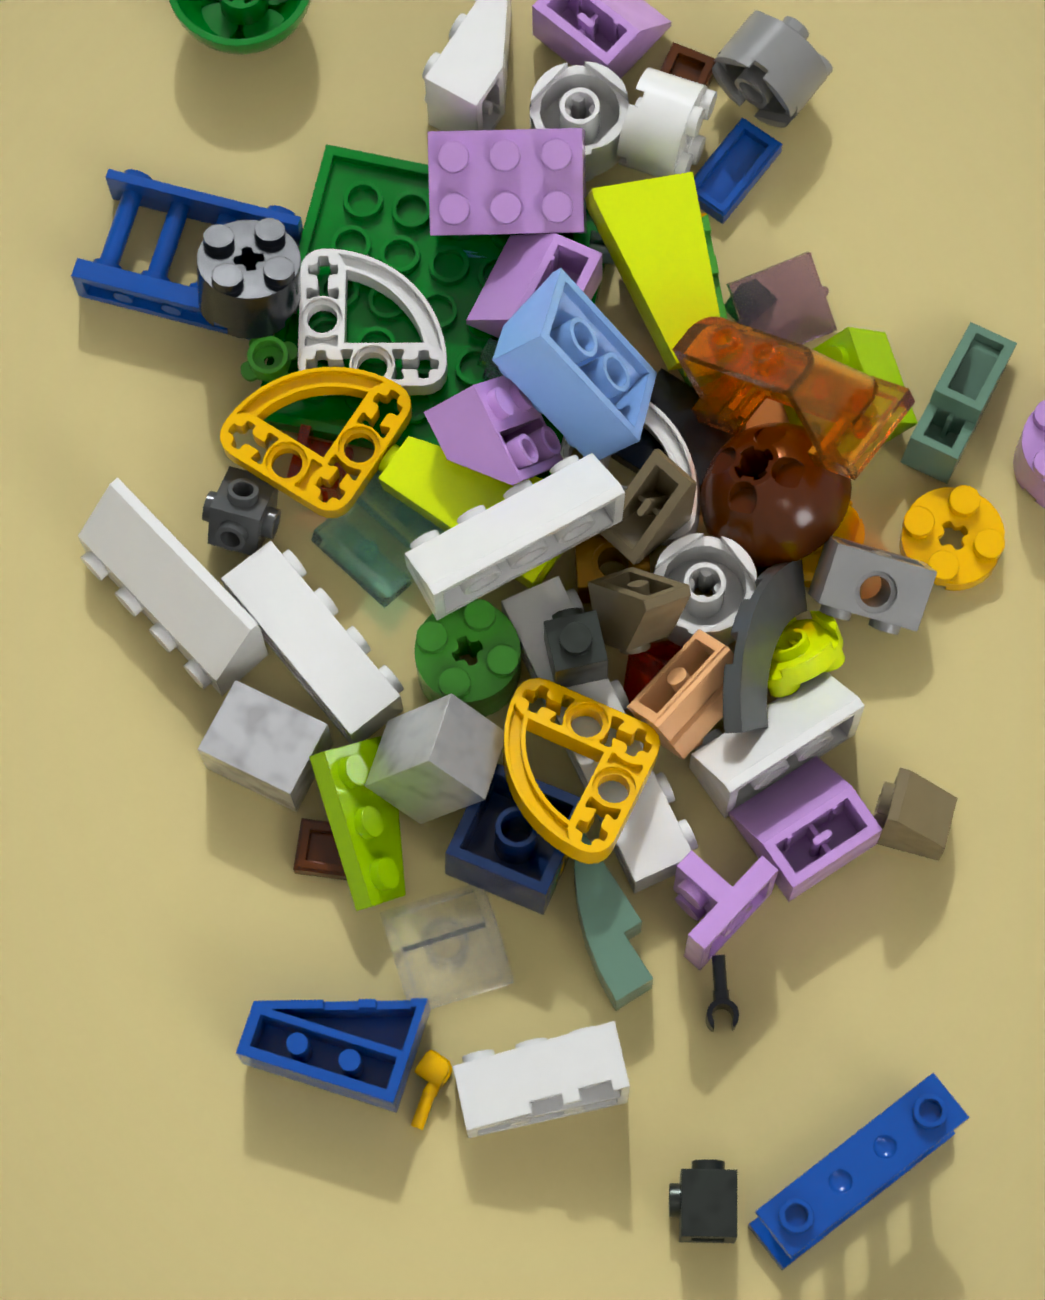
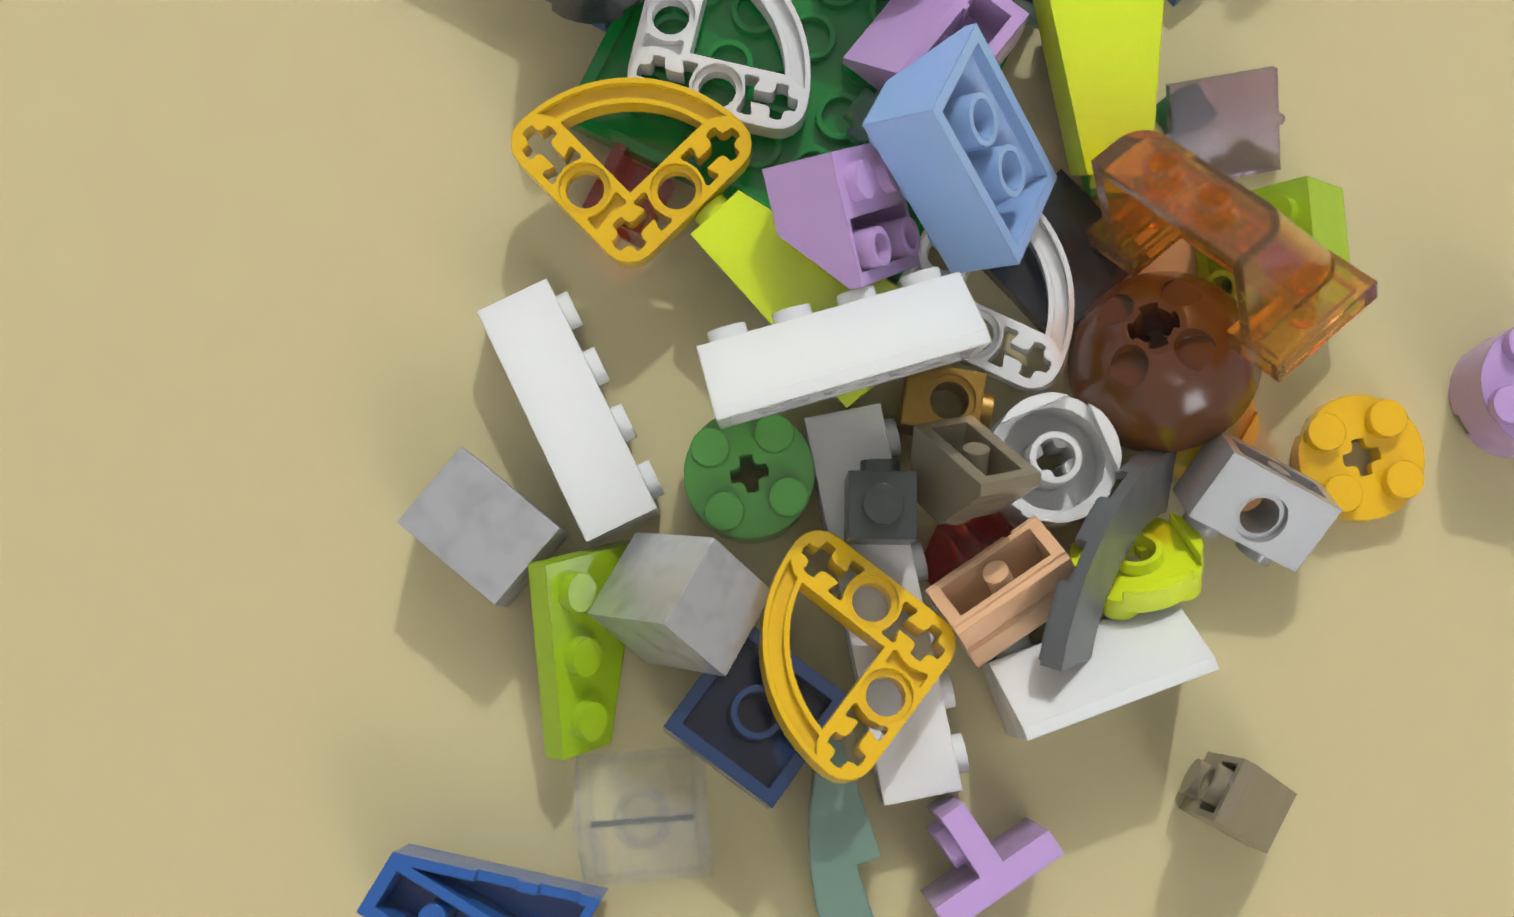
camera: 10 degrees right, 10 degrees up
(171, 590) = (414, 309): white slope -> none
(241, 512) = (521, 234): dark grey brick -> none
(264, 348) = (595, 37): bright green plate -> none
(317, 851) = (516, 663): reddish brown tile -> none
(373, 540) = (677, 303): clear light blue slope -> none
(654, 508) = (1025, 344): dark tan slope -> none
(807, 826) = (1107, 783): lavender slope -> none
(958, 403) = (1410, 294): sand green slope -> none

